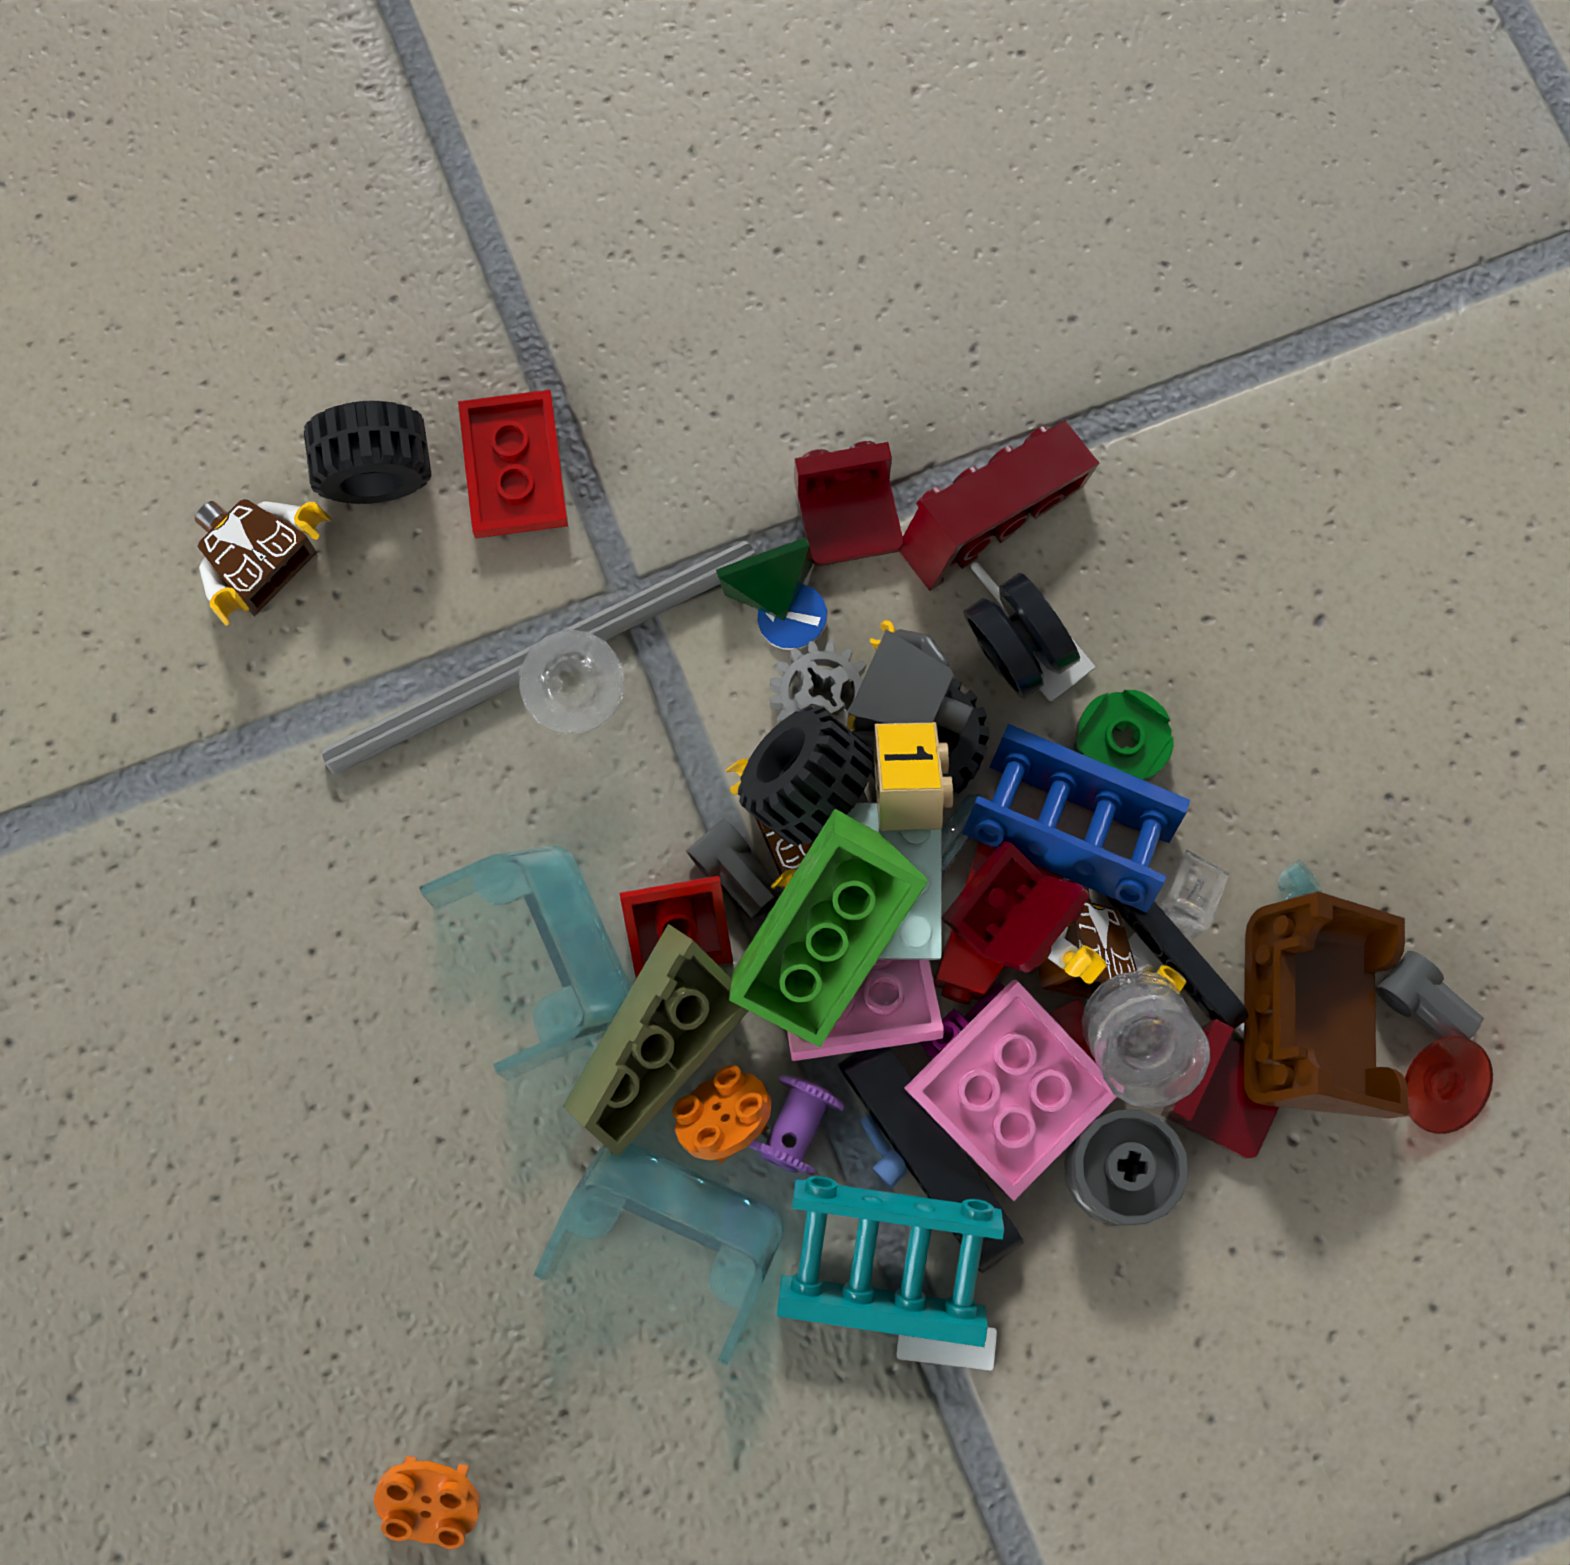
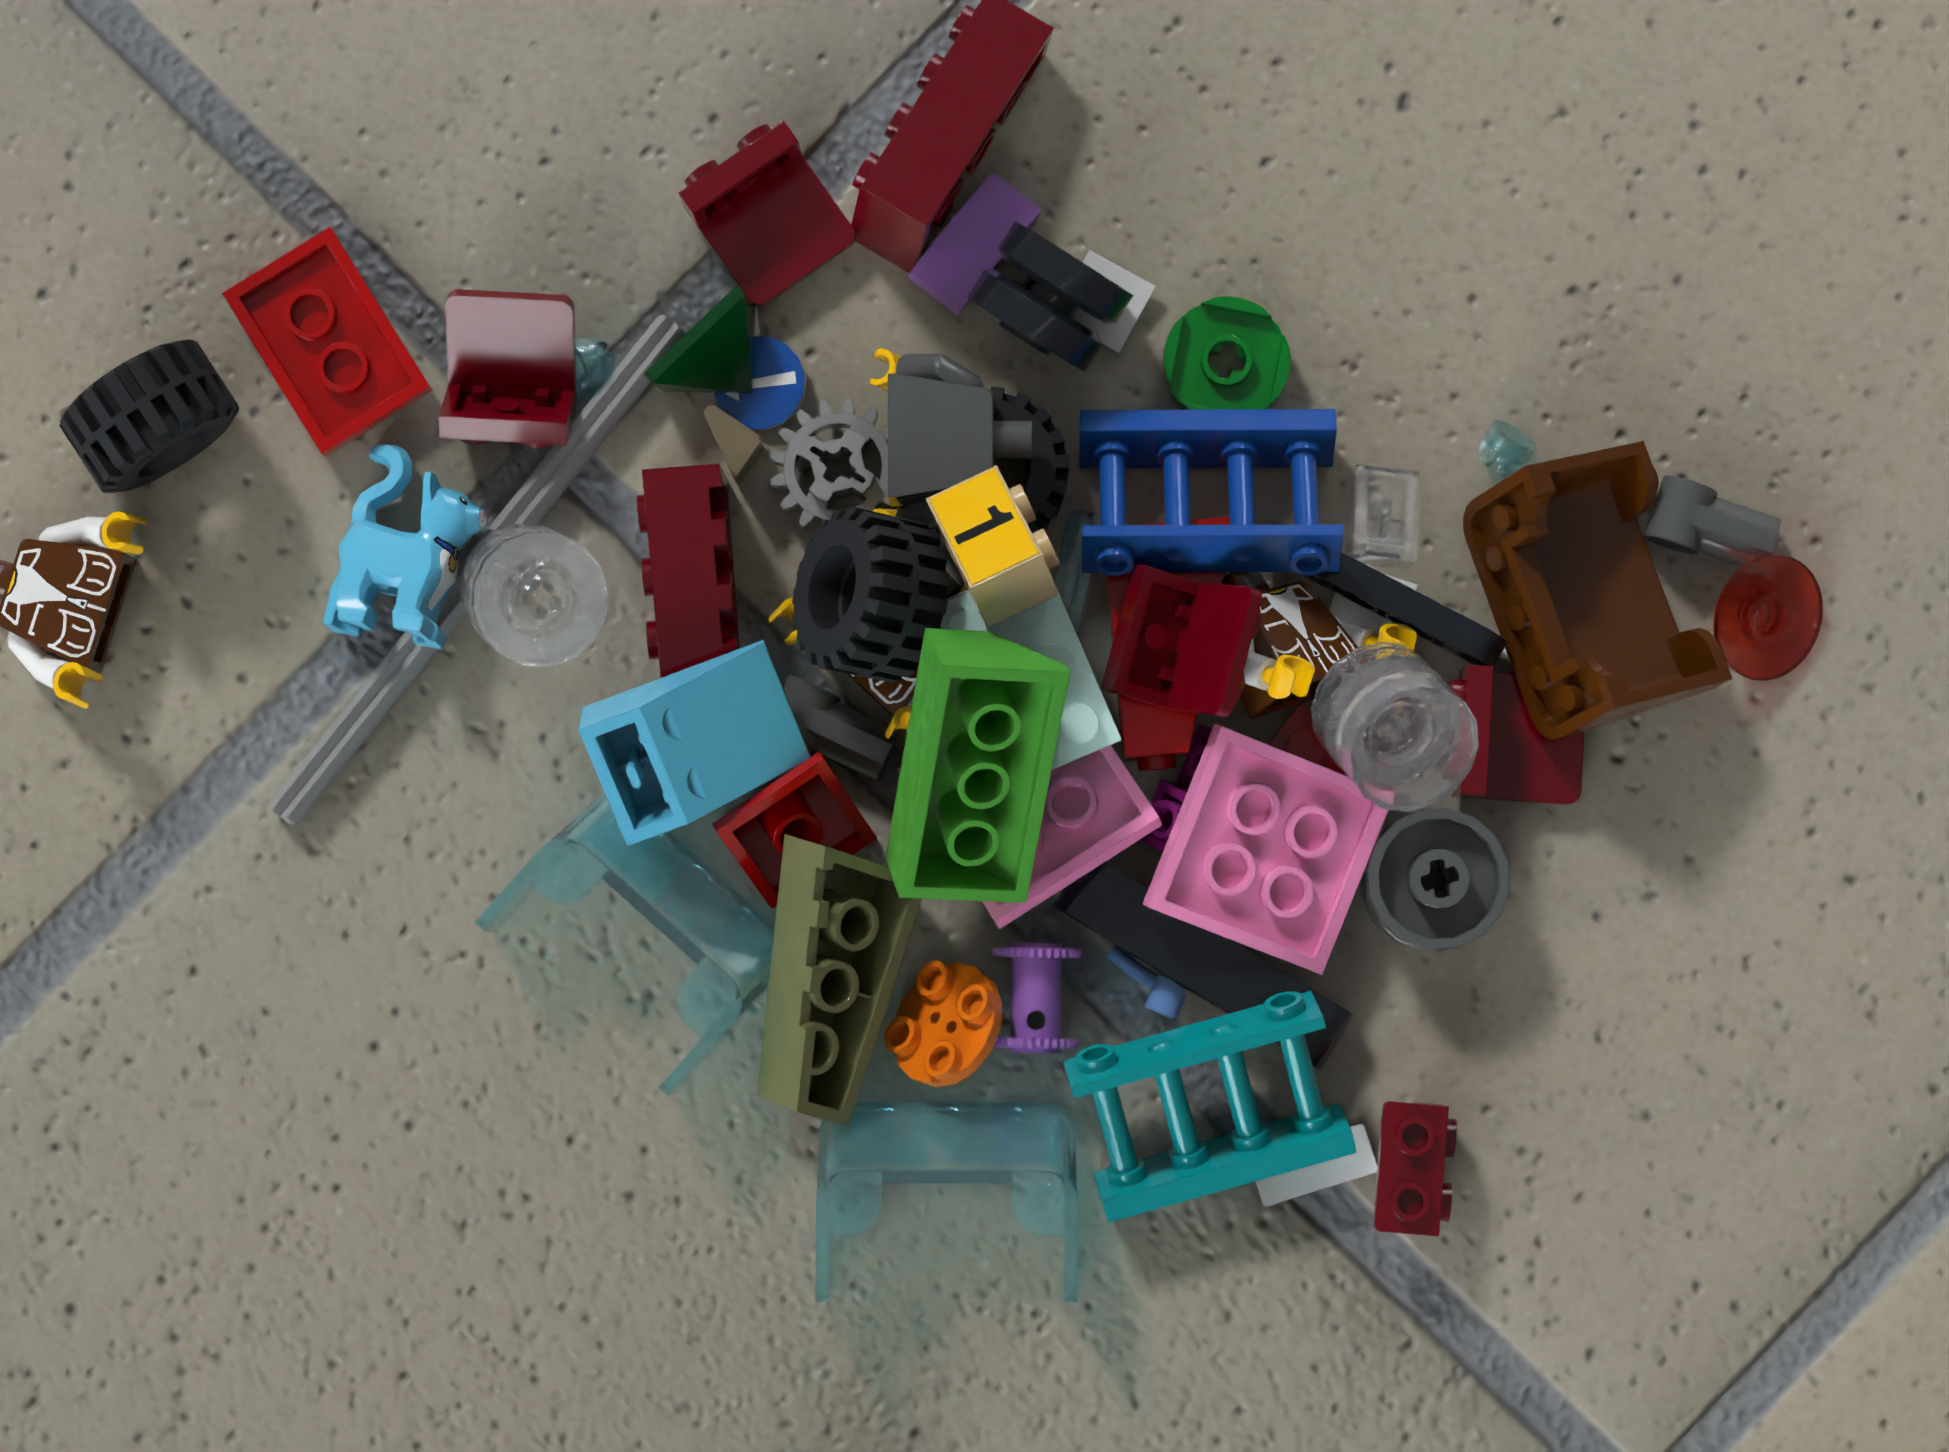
camera: 20 degrees left, 10 degrees up
(491, 627) = (398, 563): none -> medium azure animal
(627, 528) = (509, 368): none -> dark red bracket
(632, 827) = (692, 741): none -> medium azure slope
(679, 735) = (688, 565): none -> dark red wedge
(681, 550) = (592, 363): none -> clear light blue hinge
(759, 645) = (736, 441): none -> dark tan slope
(977, 580) = (972, 242): none -> medium lavender slope
(1021, 1378) = (1412, 1168): none -> dark red bracket

